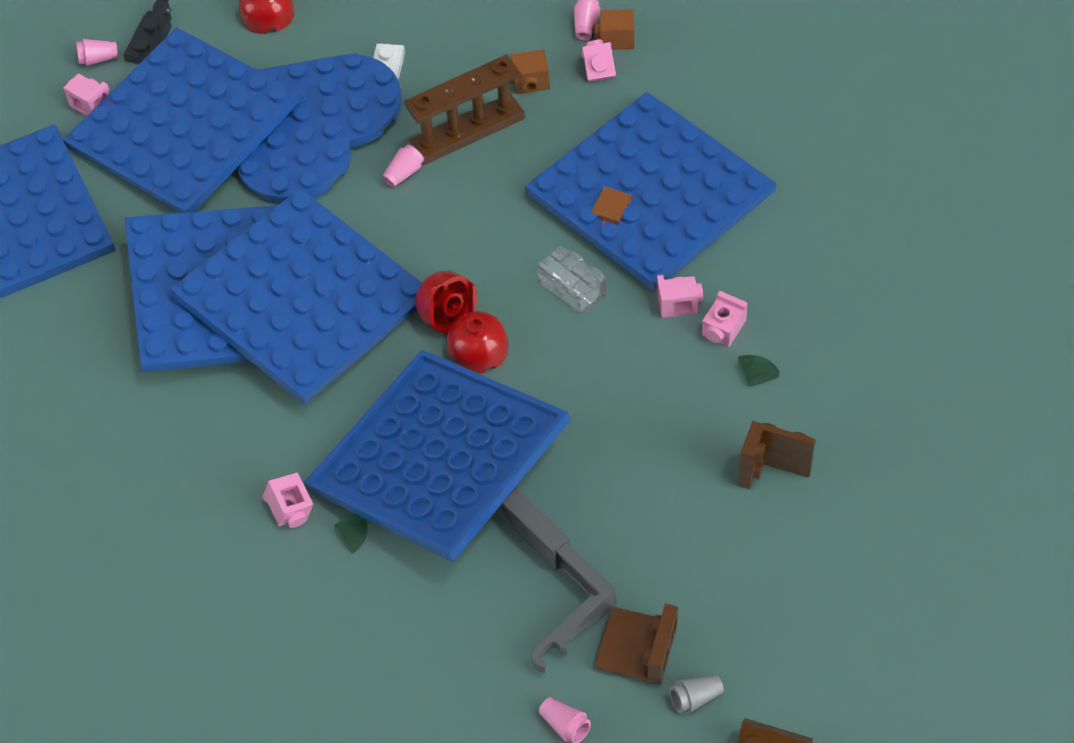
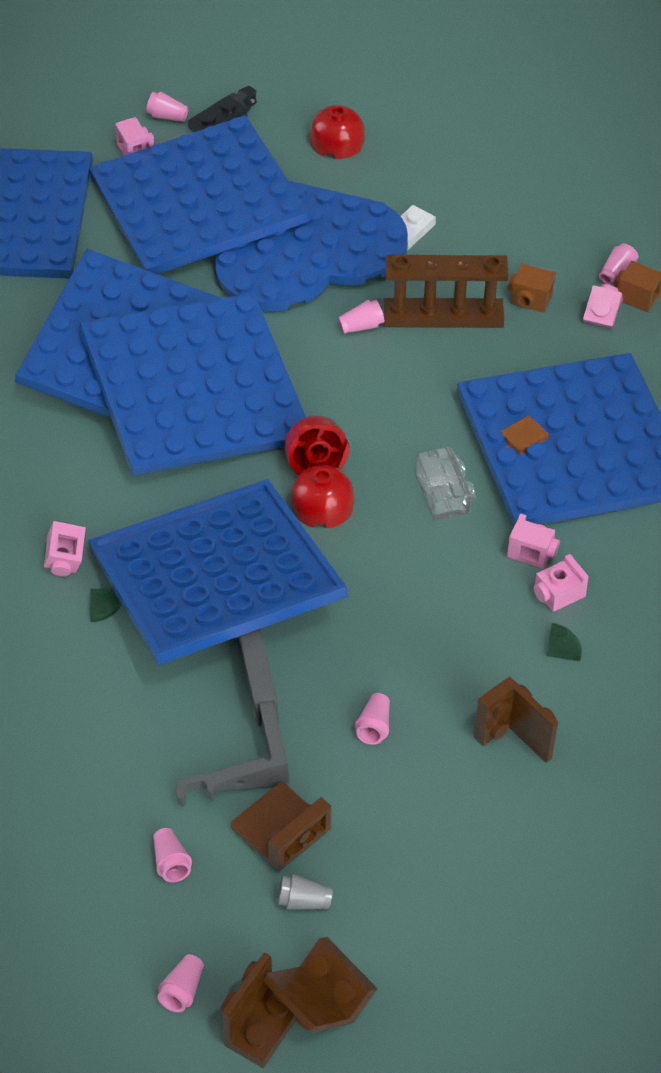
camera: 25 degrees right, 5 degrees down
(653, 515) = (374, 720): none -> bright pink cone

